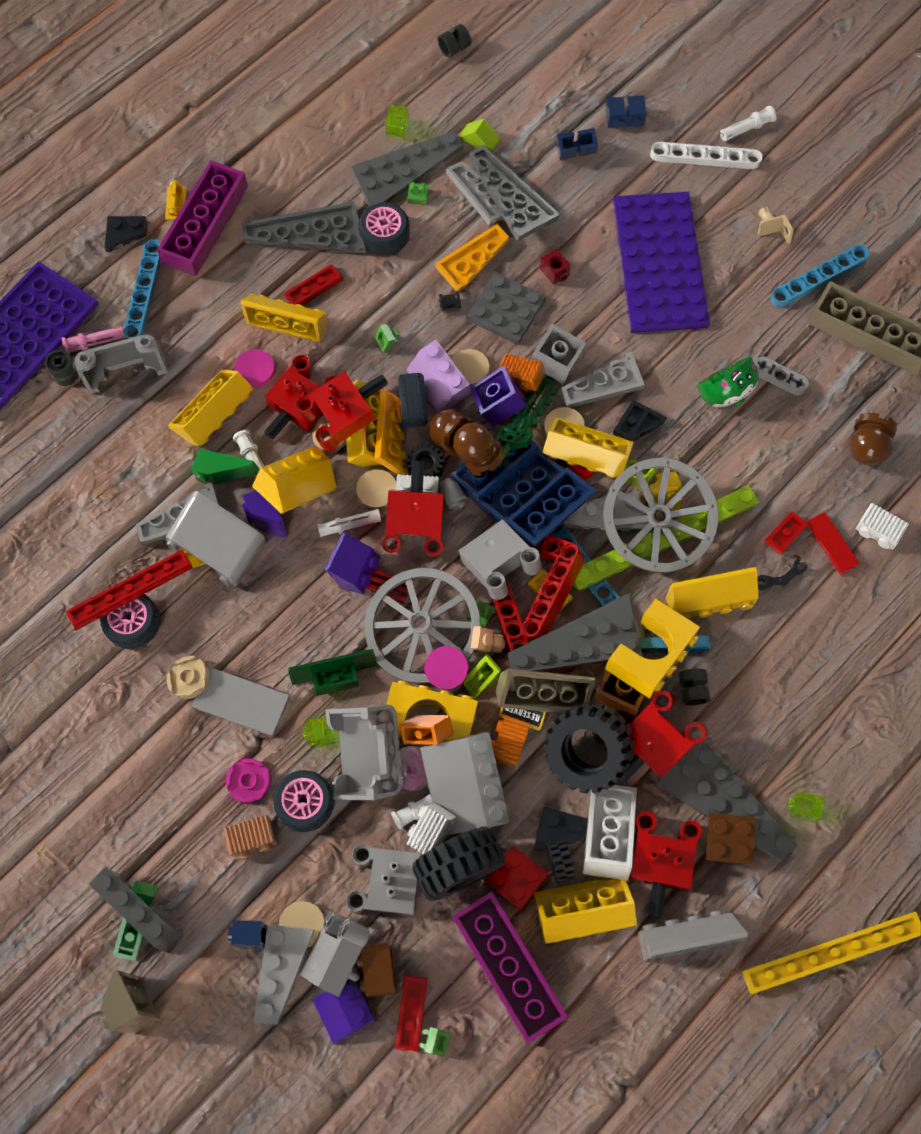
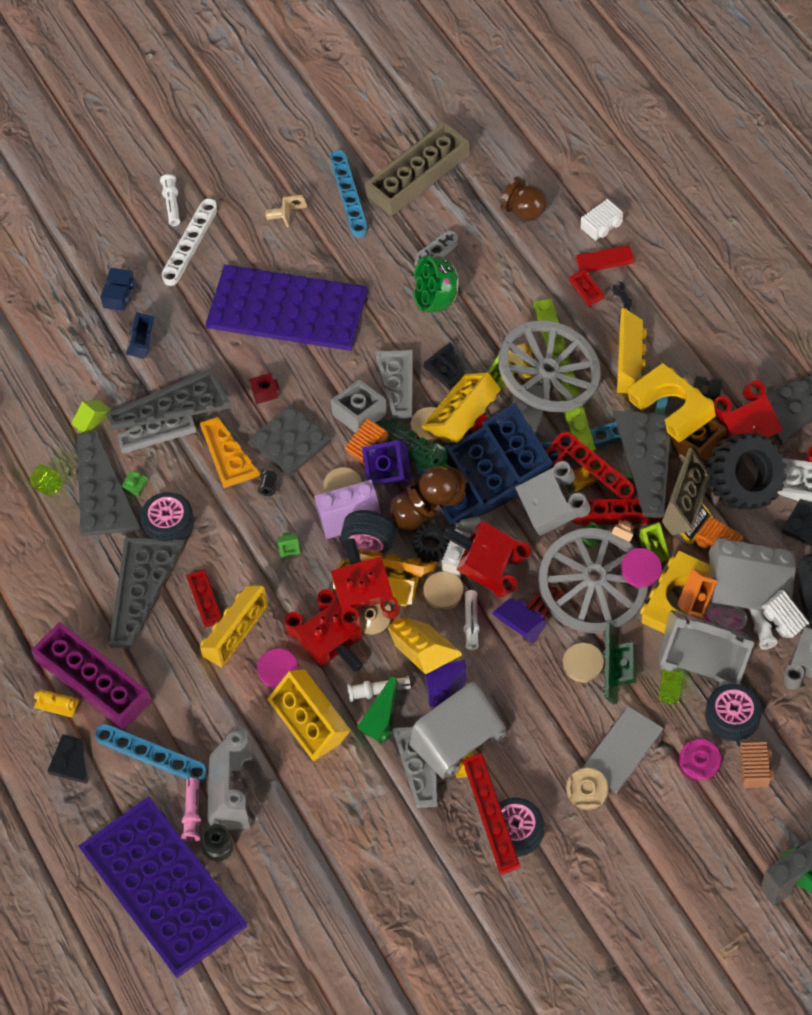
camera: 70 degrees left, 10 degrees down
(329, 639) = (583, 662): none -> tan tile

